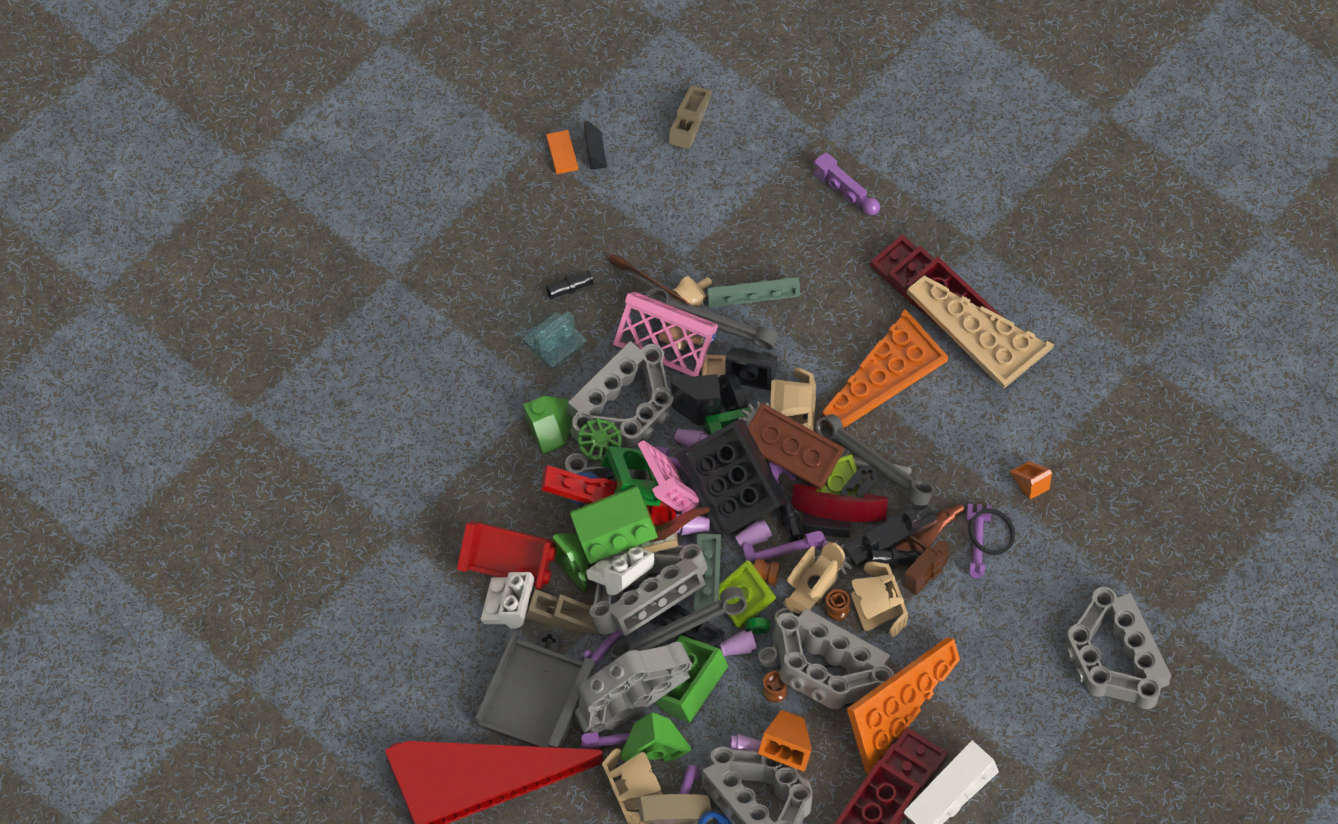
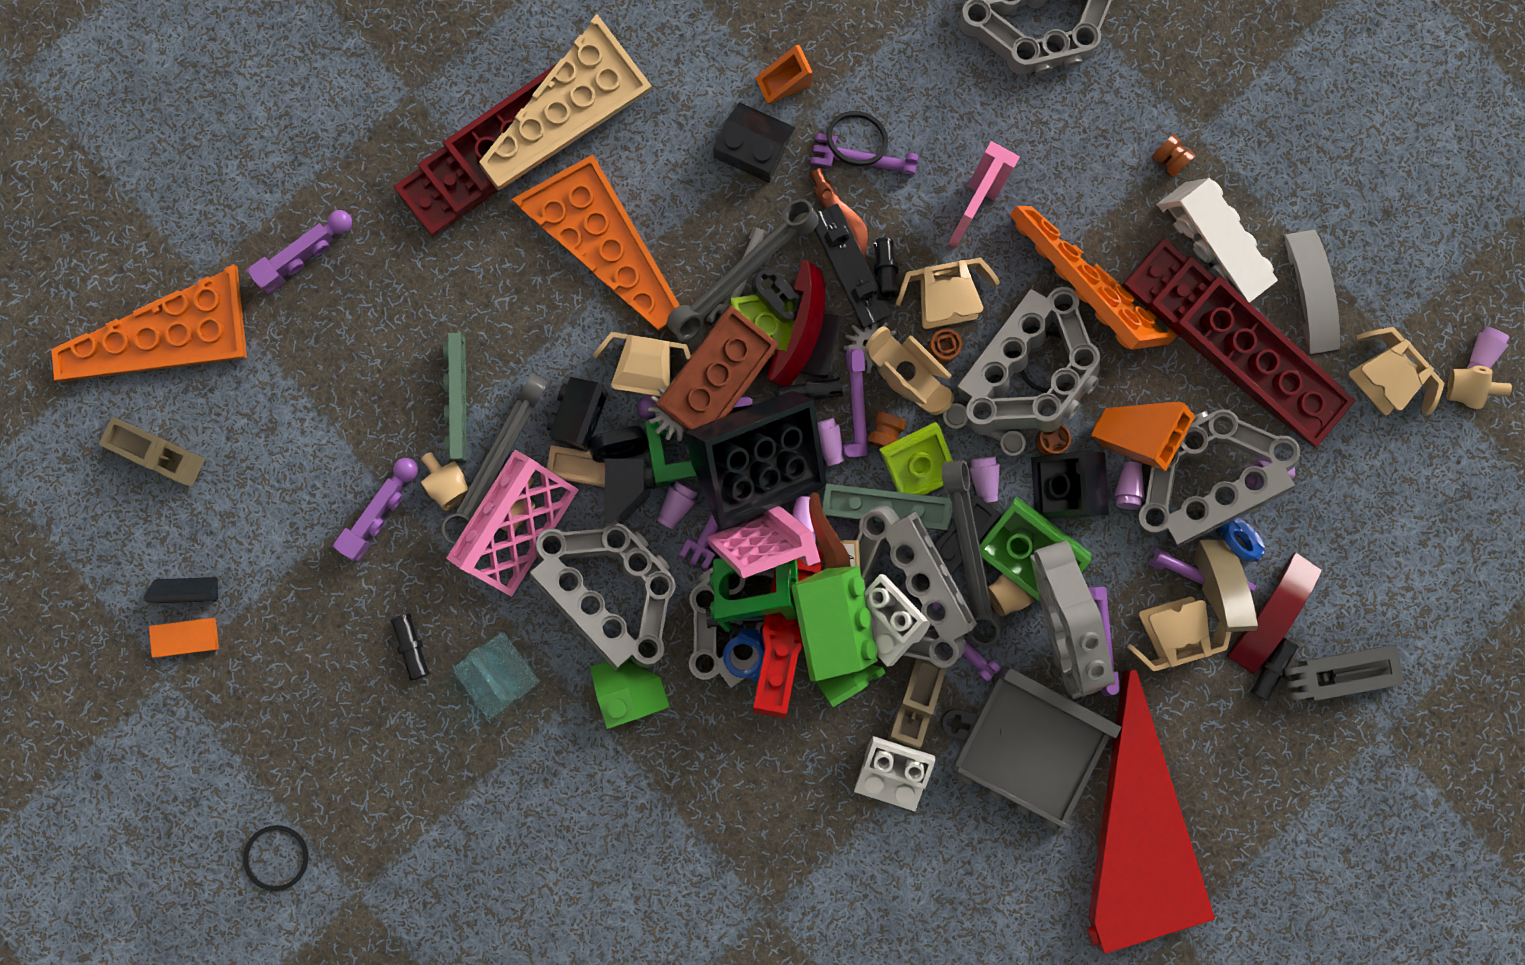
camera: 95 degrees left, 25 degrees up
(414, 241) = (246, 858): none -> black piece
(502, 550) = (829, 769): red panel -> none
(598, 439) = (677, 629): bright green wheel -> none
(623, 264) = (385, 571): copper piece -> none
(656, 249) = (354, 541): none -> medium lavender plate
(656, 738) = (1123, 601): bright green slope -> none
(741, 704) = (1070, 485): none -> black slope
(758, 625) = (963, 449): green tile -> none
(776, 118) = (172, 332): none -> orange wing
(927, 566) = (905, 225): reddish brown piece -> none
(968, 600) = (986, 181): none -> bright pink fence
(977, 460) = (752, 141): none -> black slope
(1016, 754) = (1173, 155): none -> dark orange wheel

